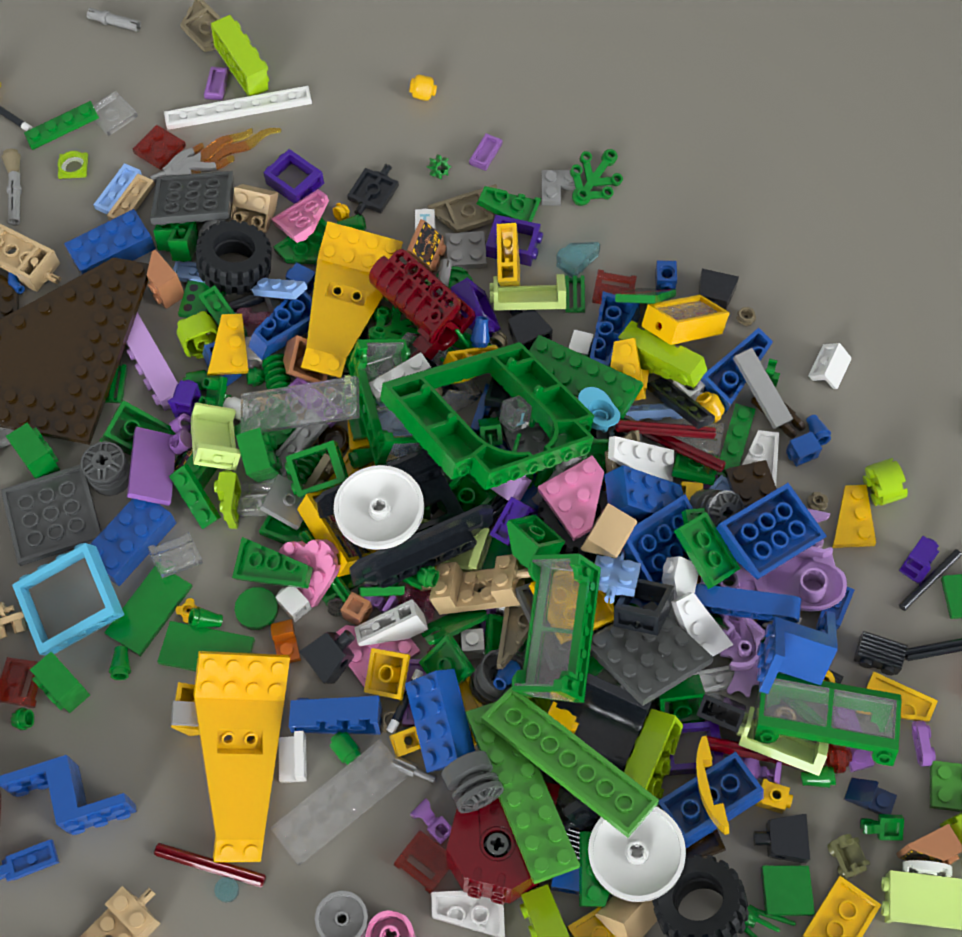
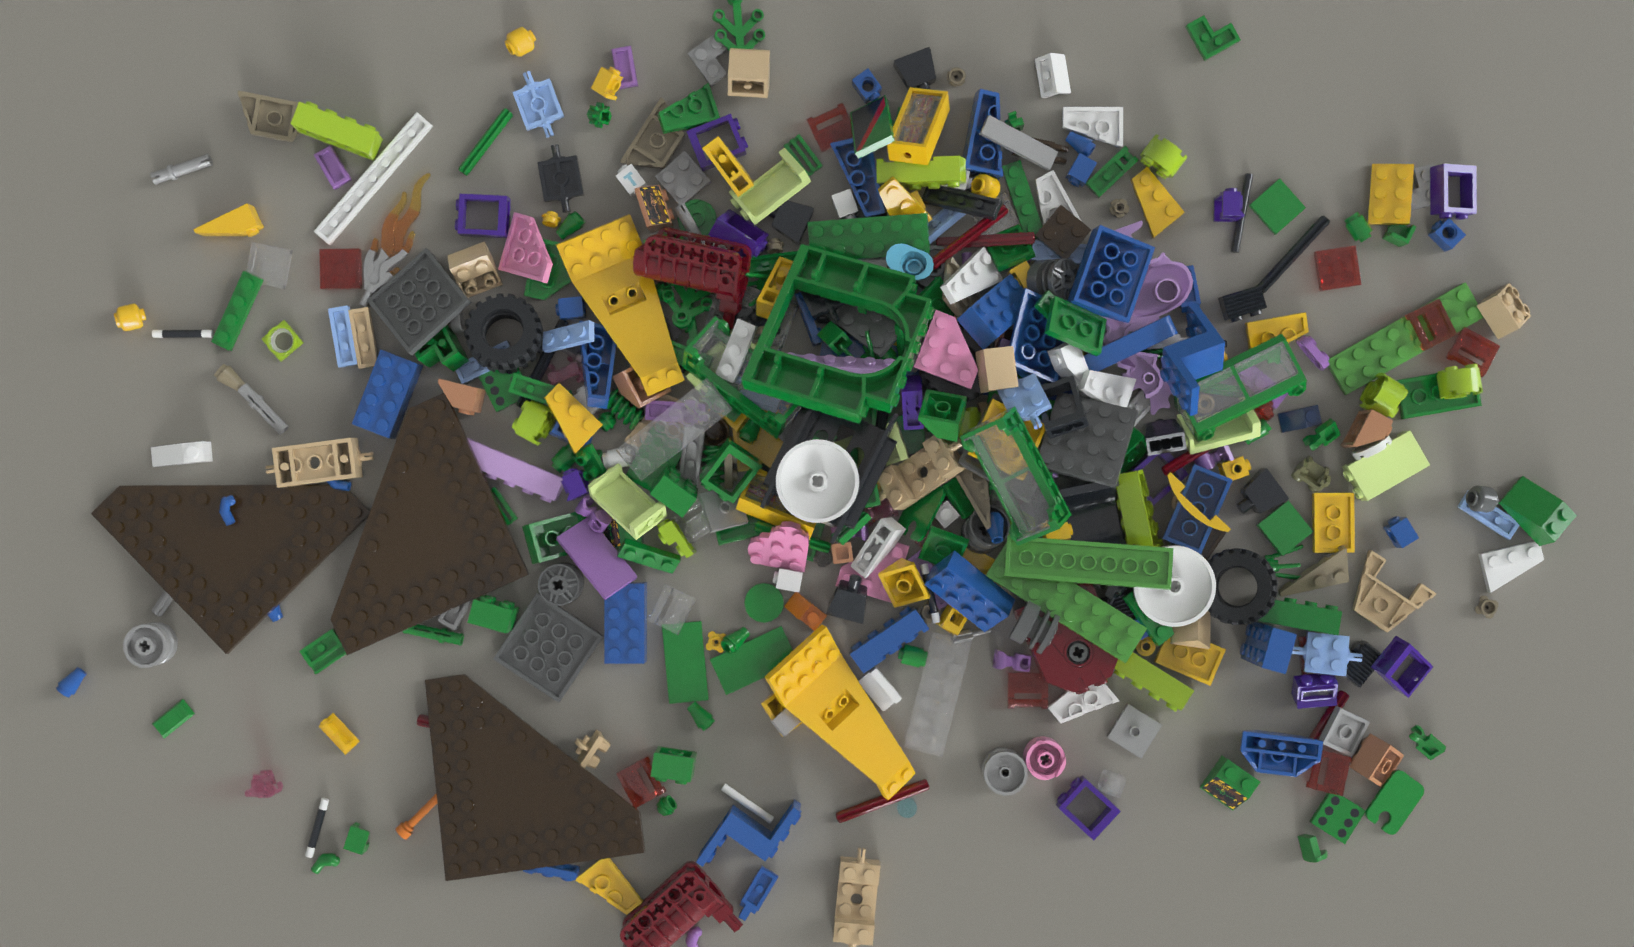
camera: 40 degrees left, 25 degrees up
(82, 629) = (640, 673): medium azure window -> none
(90, 770) = (747, 803): none -> white bar
(116, 72) = (238, 222): none -> yellow slope
(267, 566) = (752, 568): green wing -> none
(339, 134) = (485, 141): none -> green axle
(400, 134) = (538, 104): none -> light blue plate
(428, 576) = (882, 495): green plate -> none
(464, 148) = (607, 82): none -> yellow brick
(480, 333) = (765, 261): blue cone -> none
(515, 413) = (849, 315): clear brick -> none
(566, 911) = (1139, 648): none -> yellow plate
(577, 206) = (749, 73): none -> tan slope
(577, 257) = (780, 121): clear light blue slope -> none
(830, 468) = (1111, 172): none -> green plate
(844, 423) = (1096, 123): none -> white wing

